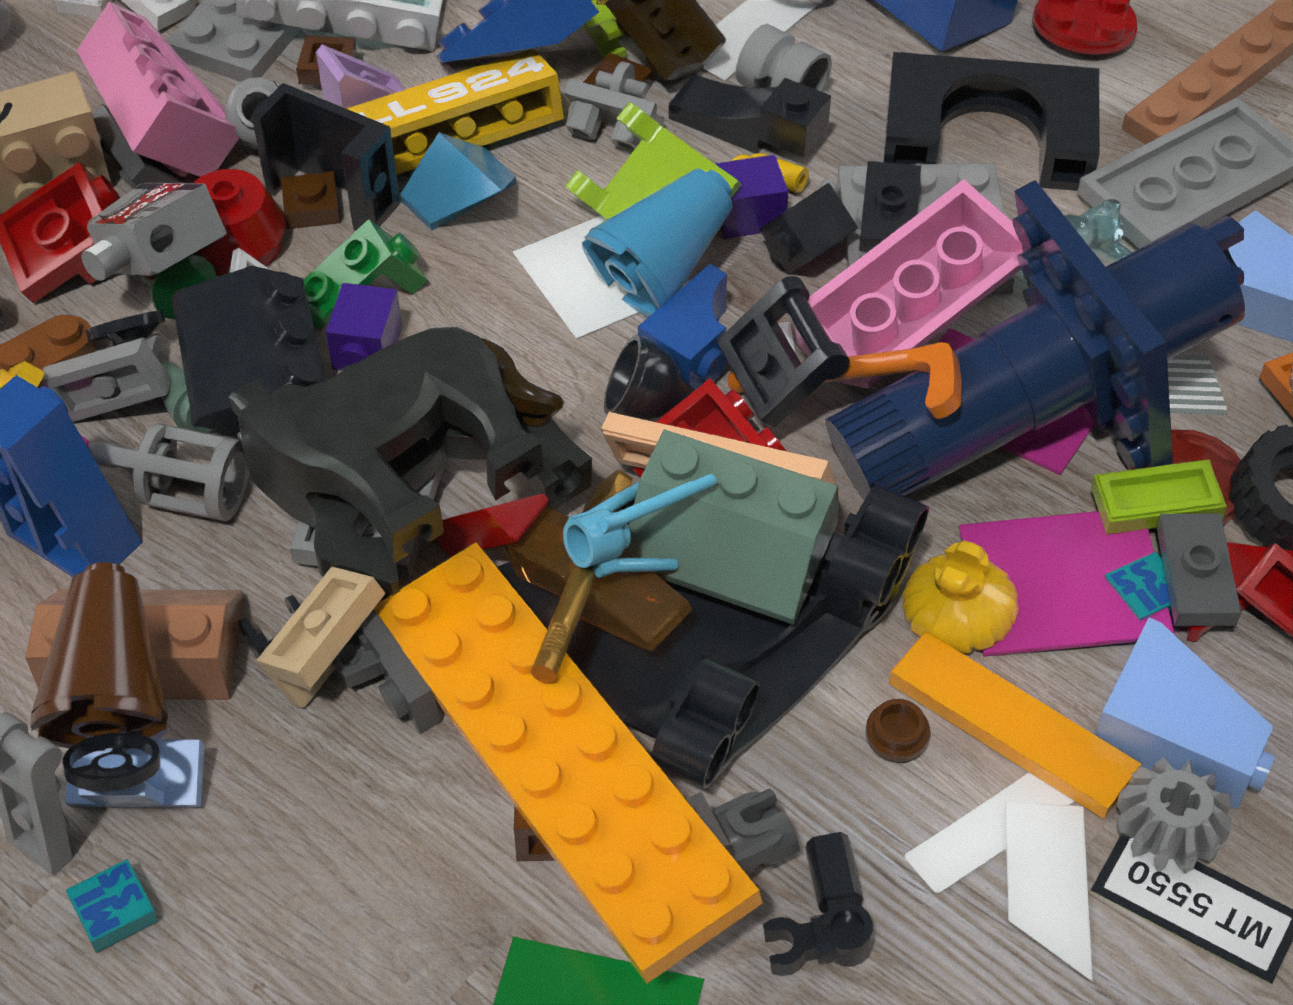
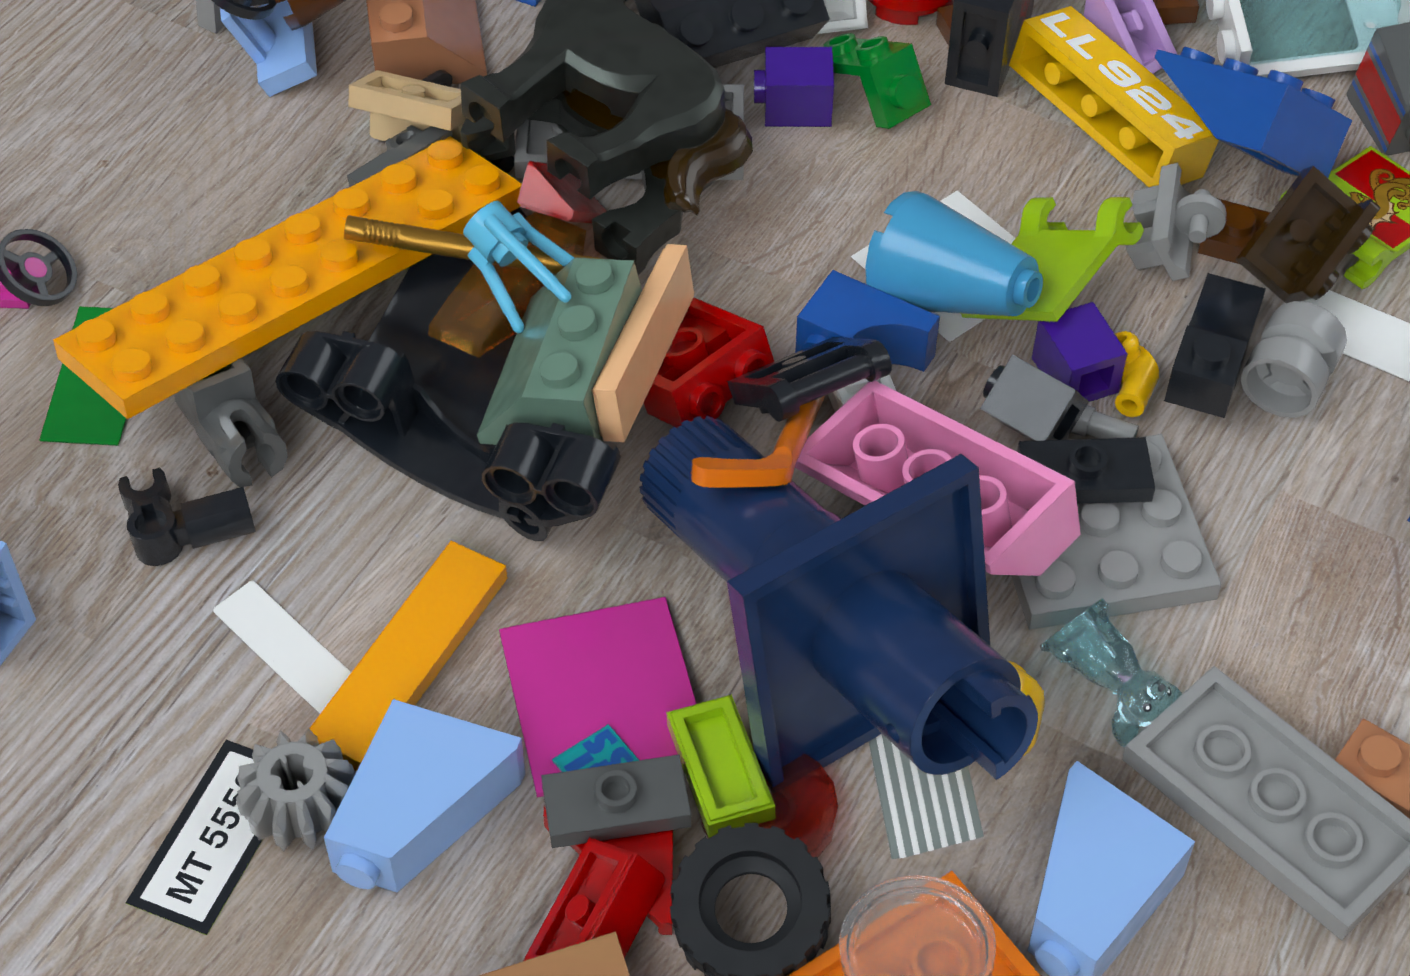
camera: 80 degrees right, 0 degrees up
(111, 905) = (166, 58): tile -> none
(453, 180) = (1035, 125): dark azure slope -> none
(645, 381) = (771, 295): black helmet -> none
(897, 730) = (385, 555): reddish brown plate -> none
(961, 599) = (554, 596): yellow hair -> none
(1049, 99) = (1316, 504): black arch -> none
(1049, 879) = (235, 702): white sticker -> none

